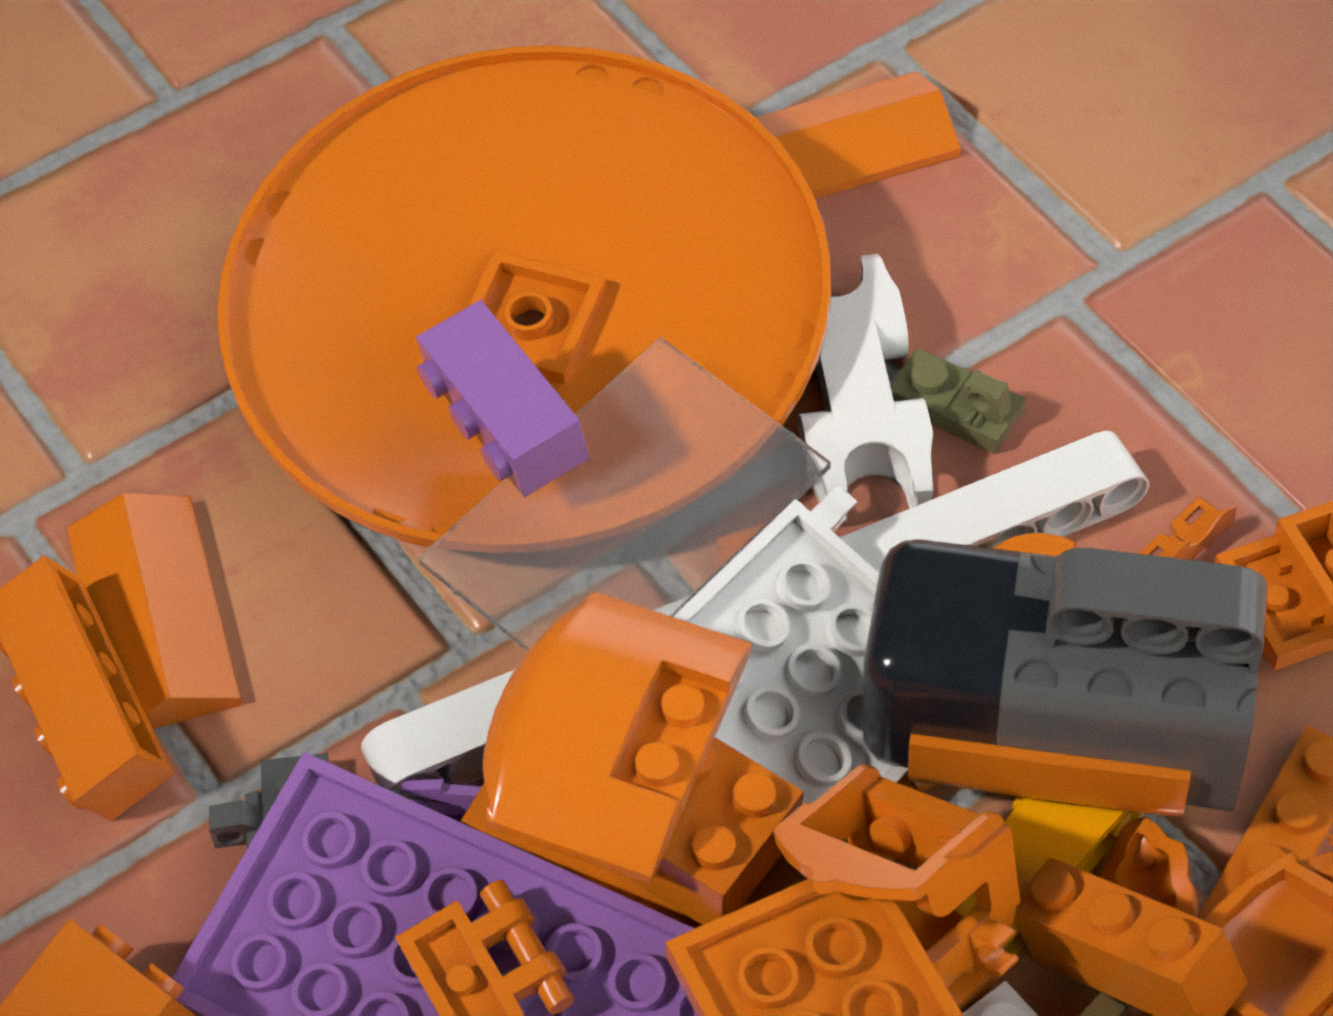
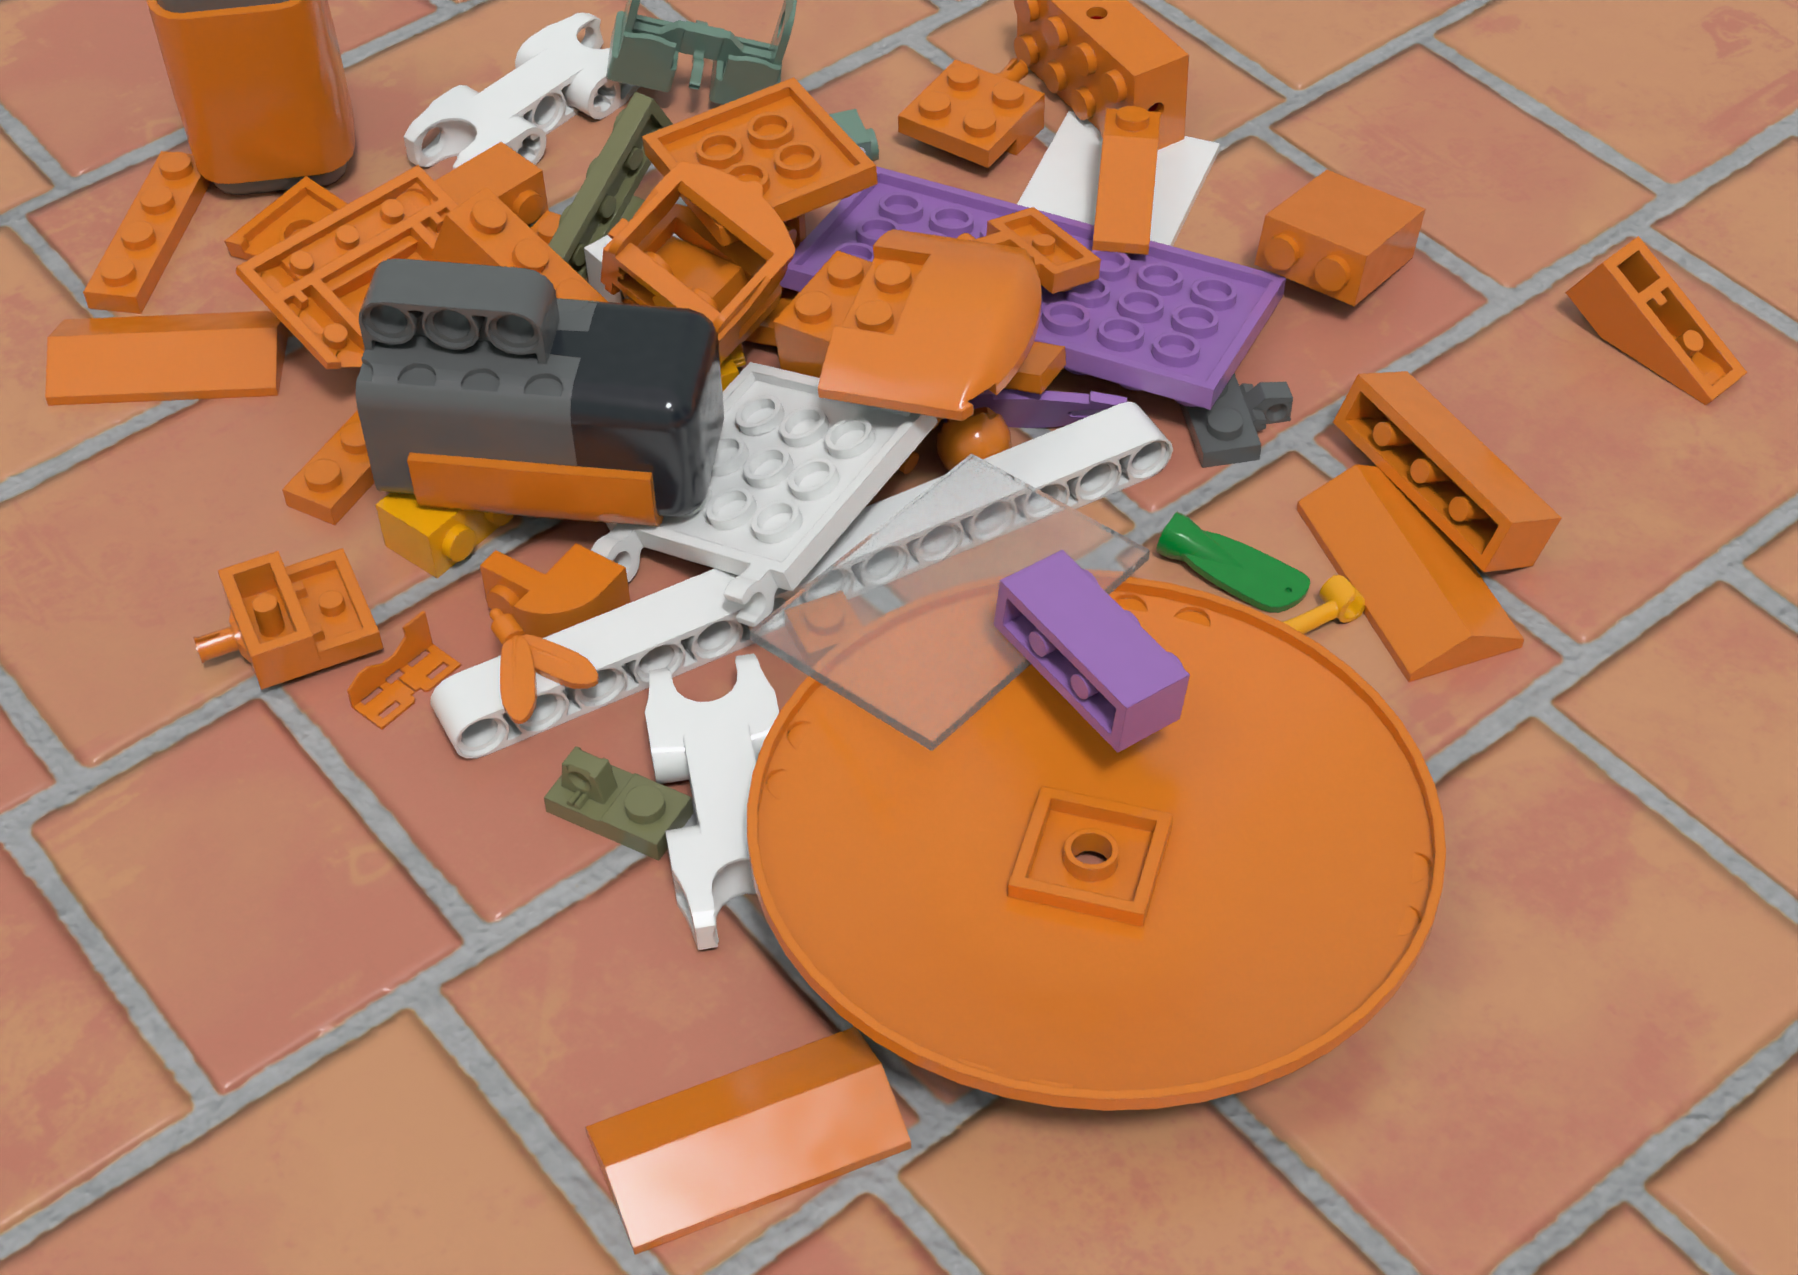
camera: 175 degrees right, 5 degrees down
(233, 575) = (1340, 602): none -> light orange piece
(330, 622) = (1234, 566): none -> green piece
(1054, 482) = (524, 657): none -> orange piece

